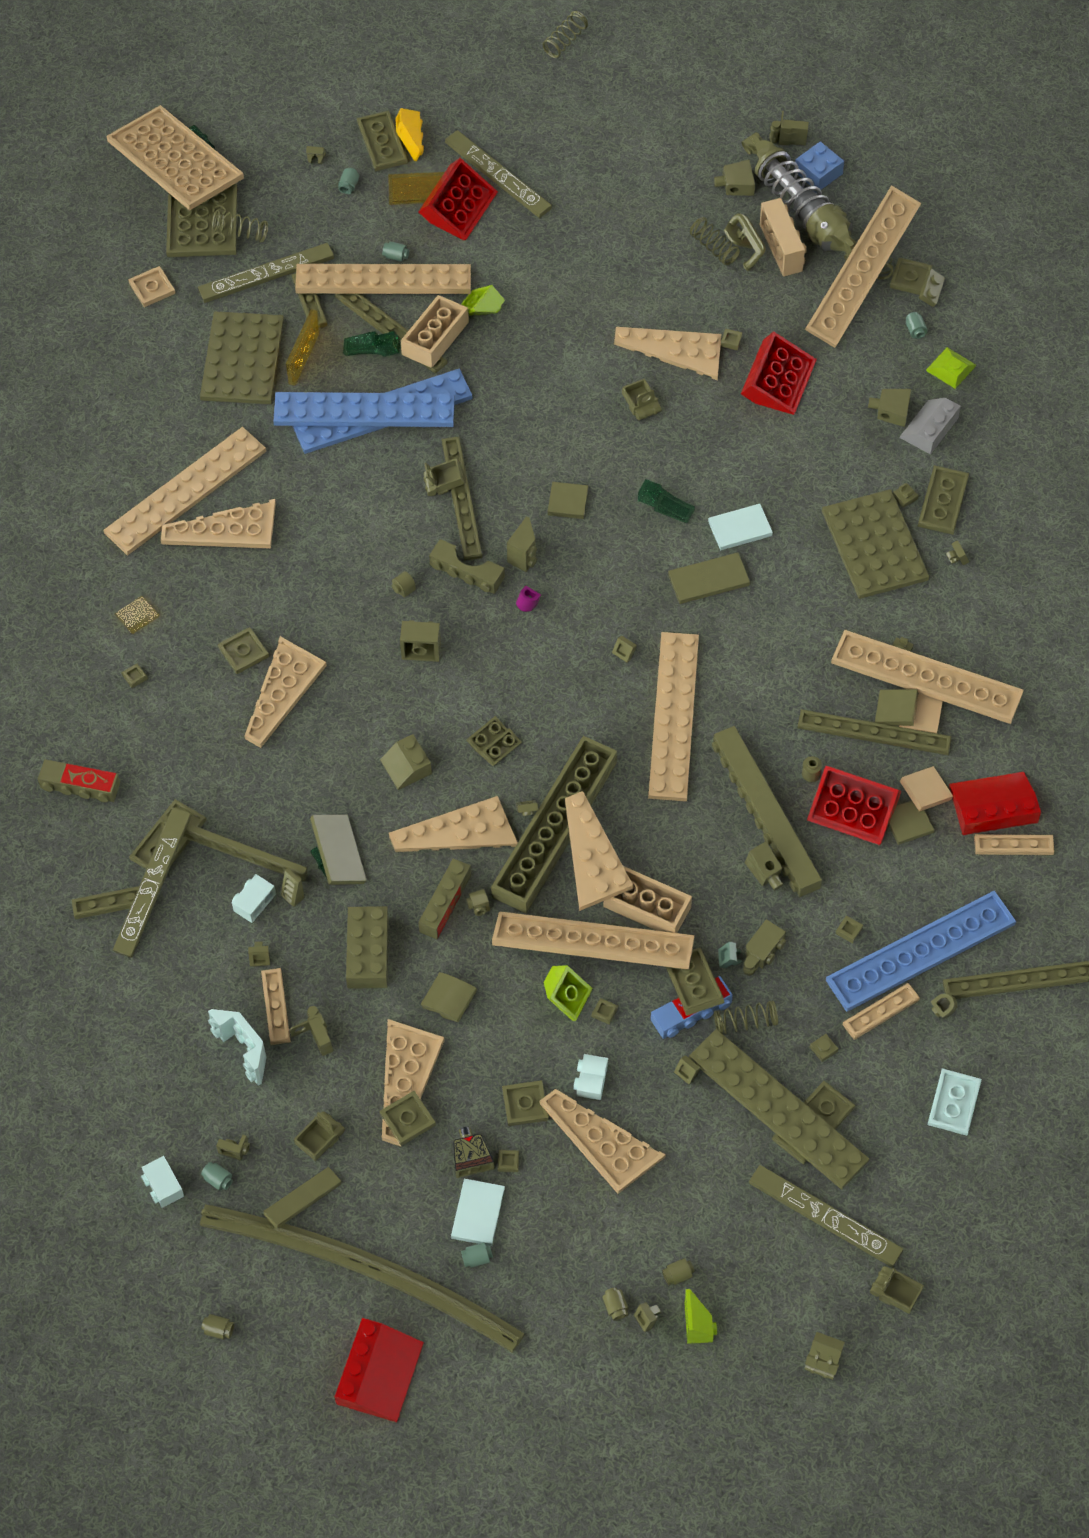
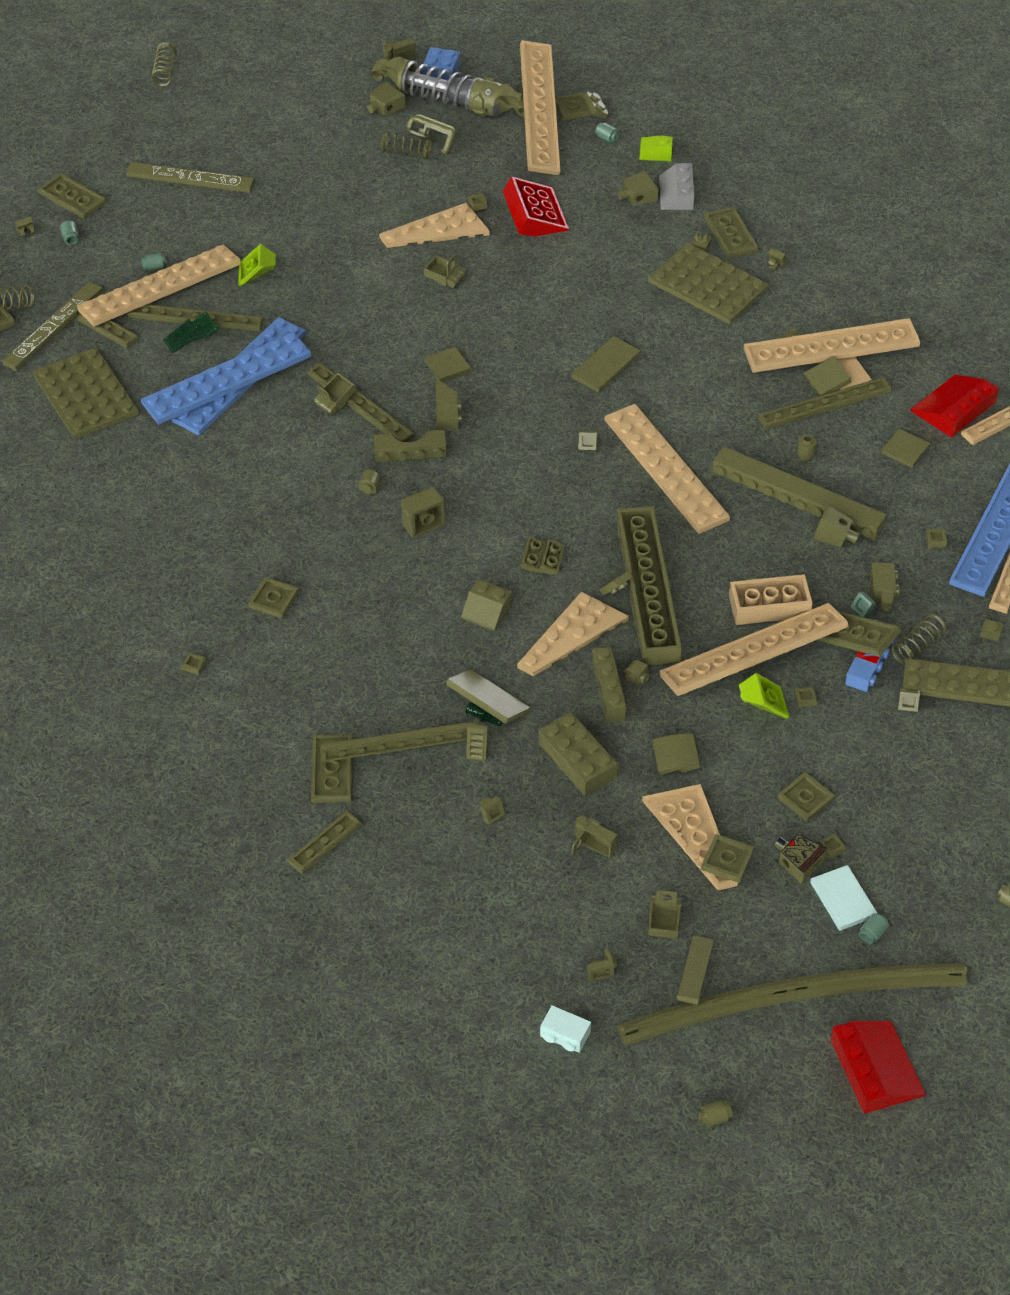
camera: 35 degrees left, 10 degrees down
(79, 781) = (215, 764): olive brick -> none
(137, 614) = (155, 618): clear yellow piece -> none
(152, 882) = (353, 804): olive tile -> none
(184, 490) = (118, 510): tan plate -> none
(217, 1176) = (608, 997): sand green brick -> none
(229, 528) = (186, 513): tan wing -> none
(231, 1023) = (540, 872): light aqua slope -> none
(253, 898) = (448, 770): light aqua brick -> none
(275, 1006) = (538, 842): tan tile -> none
(285, 683) = (333, 603): tan wing -> none
(303, 347) = (136, 356): clear yellow tile -> none
(409, 130) = (91, 176): yellow slope -> none
(412, 187) = (135, 212): clear yellow tile -> none
(434, 331) = (238, 298): tan brick -> none
(458, 200) = (174, 205): red slope -> none
(524, 601) = (480, 444): magenta plate -> none
(591, 1077) = (841, 746): light aqua brick -> none
(595, 862) = (706, 587): tan wing -> none
(607, 1146) = (895, 788): tan wing -> none
(664, 502) = (527, 330): clear green slope -> none
(740, 526) = (598, 319): light aqua tile -> none
(782, 236) = (468, 121): tan brick -> none
(853, 805) = (858, 454): red slope -> none
(926, 788) = (899, 419): tan tile -> none

